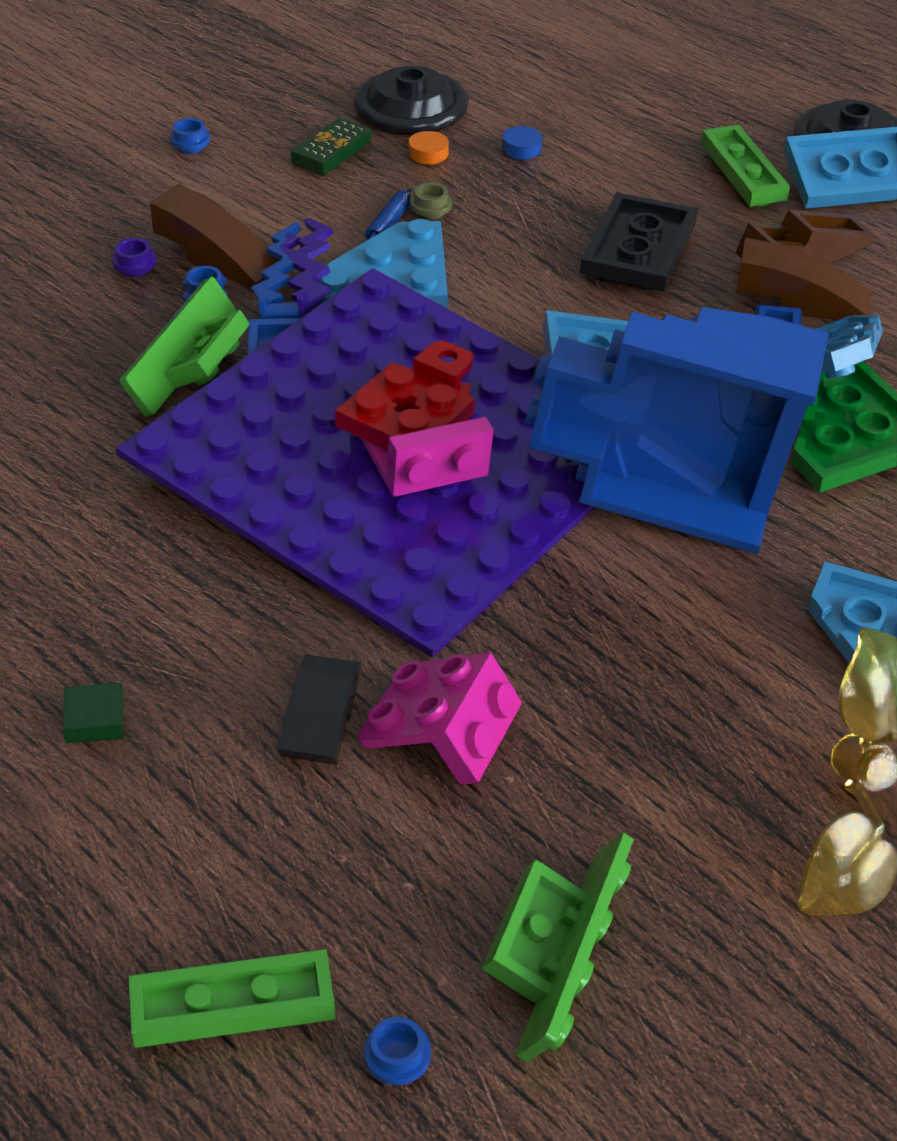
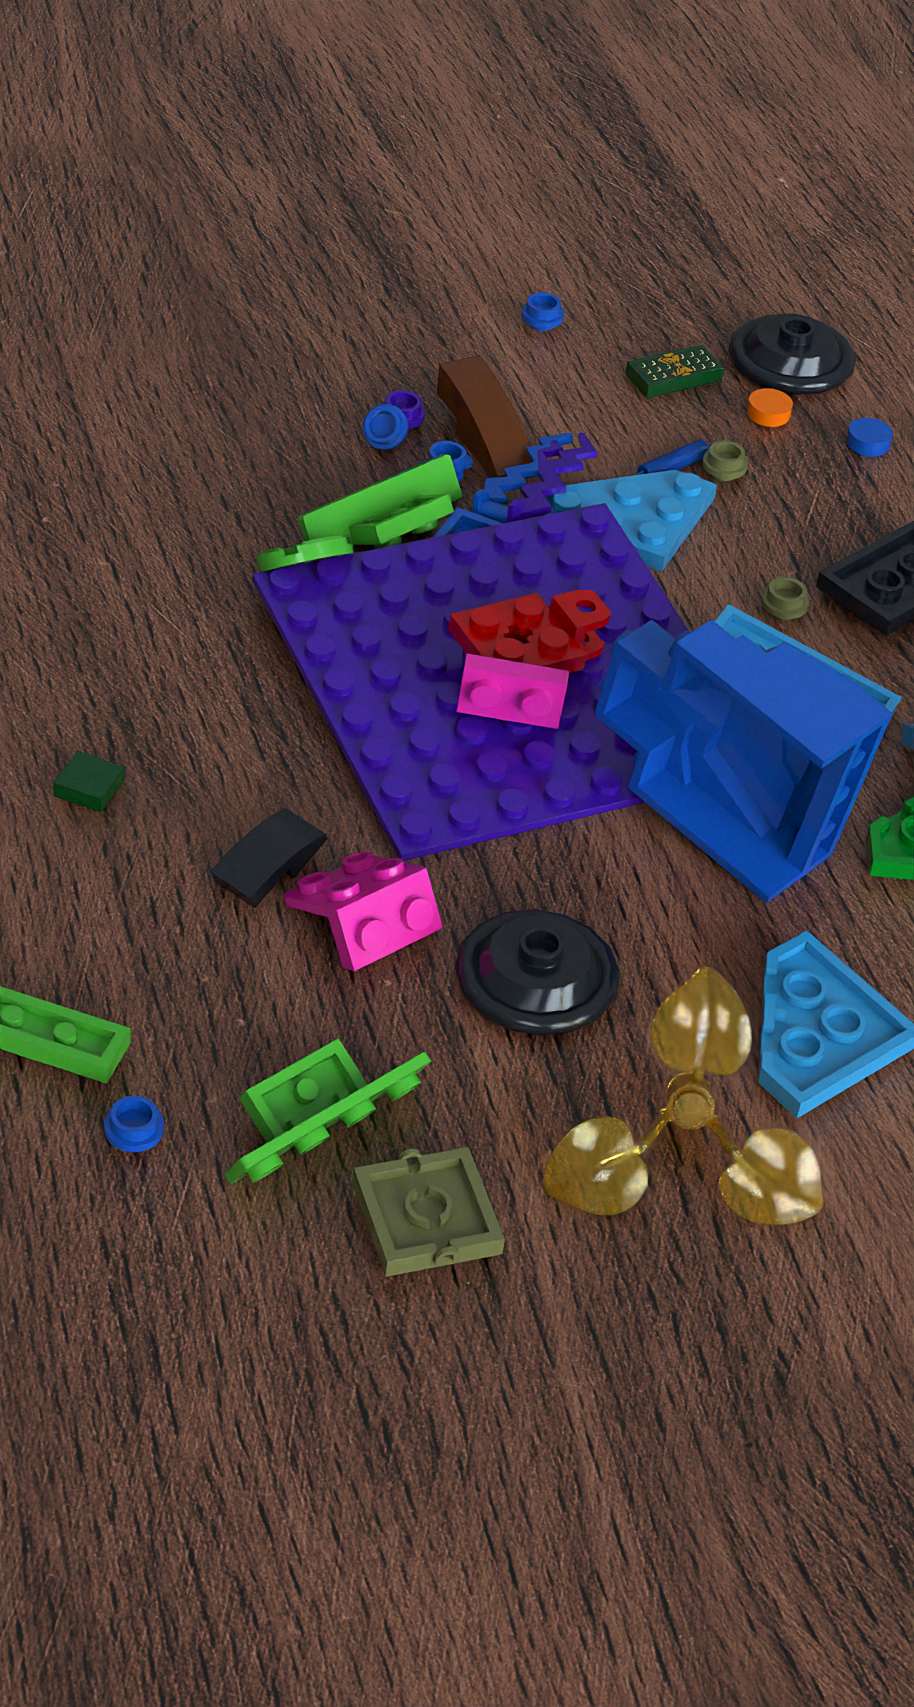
camera: 25 degrees right, 0 degrees up
(130, 276) = (385, 427): none -> blue plate
(150, 411) = (305, 552): none -> bright green tile
(568, 292) = (785, 598): none -> olive plate
(633, 705) = (537, 972): none -> black piece
(734, 992) = (427, 1211): none -> olive plate

